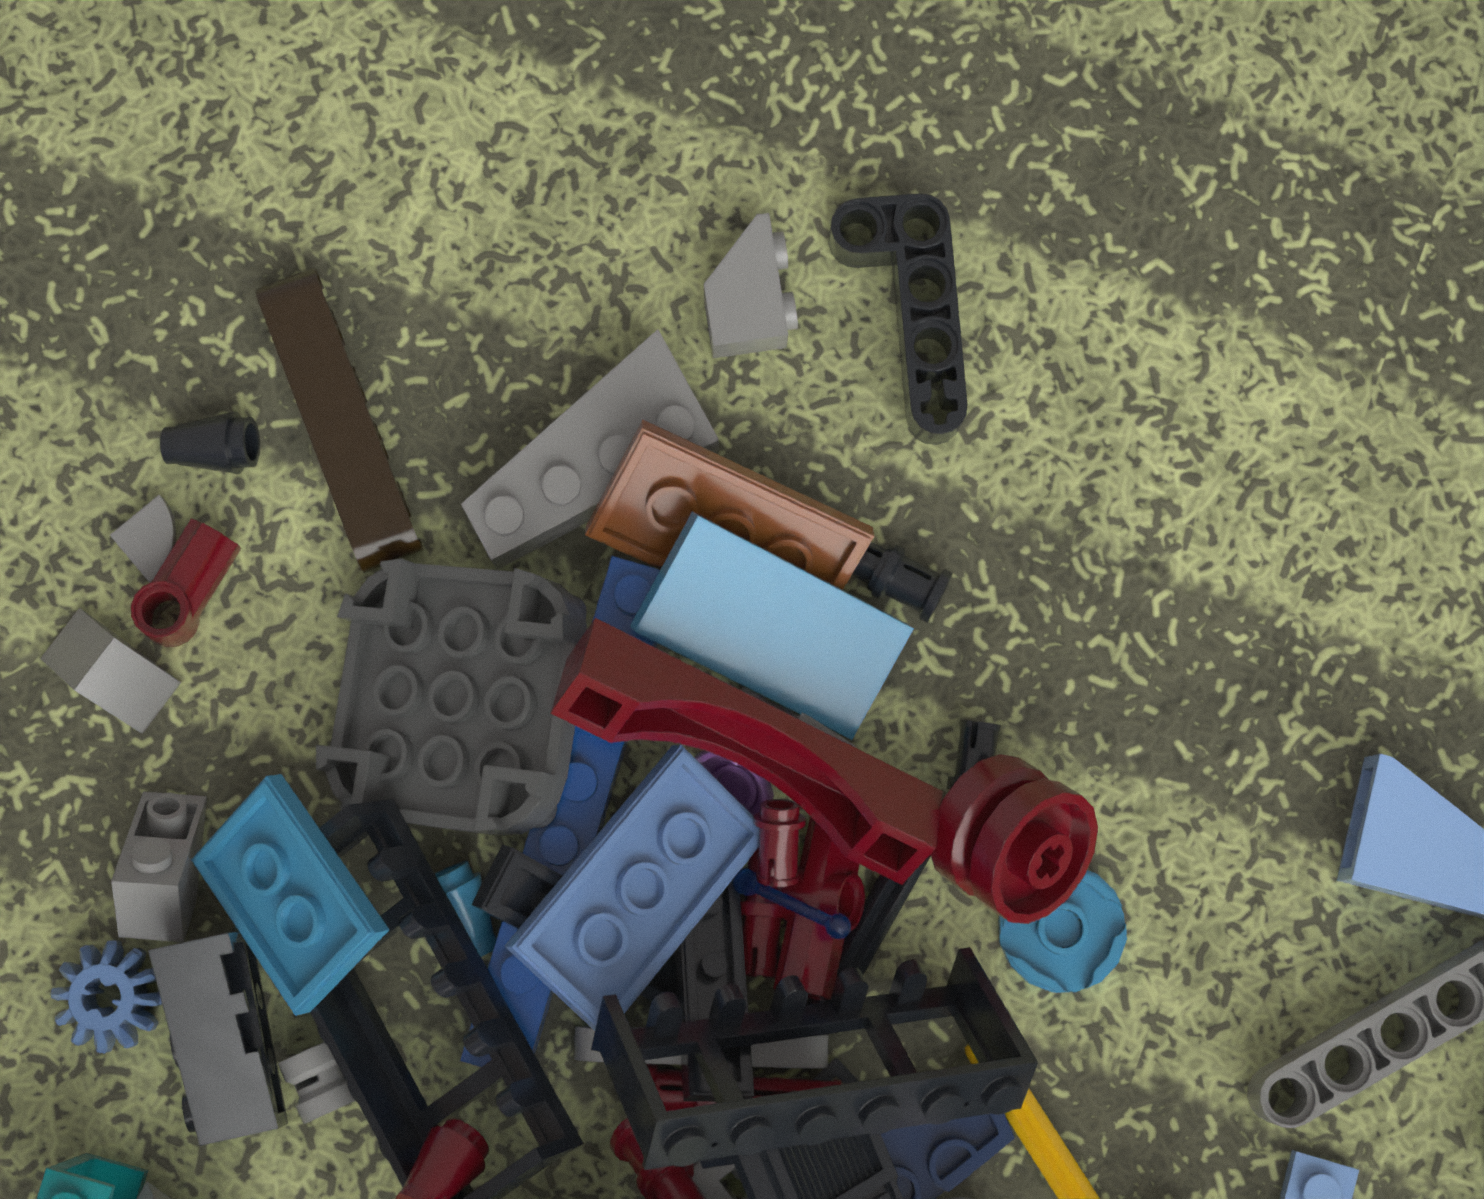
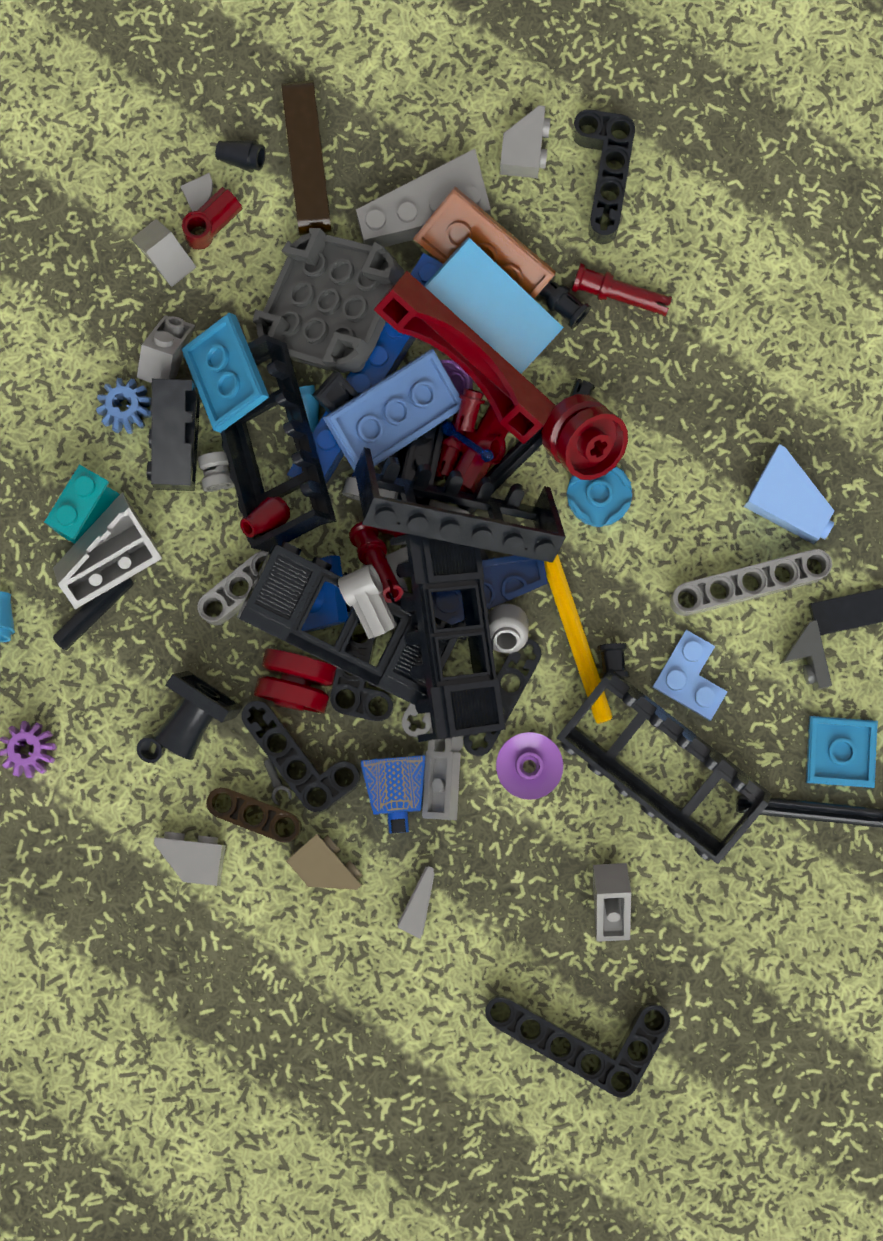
camera: 25 degrees right, 0 degrees up
(970, 526) = (605, 286): none -> dark red pin

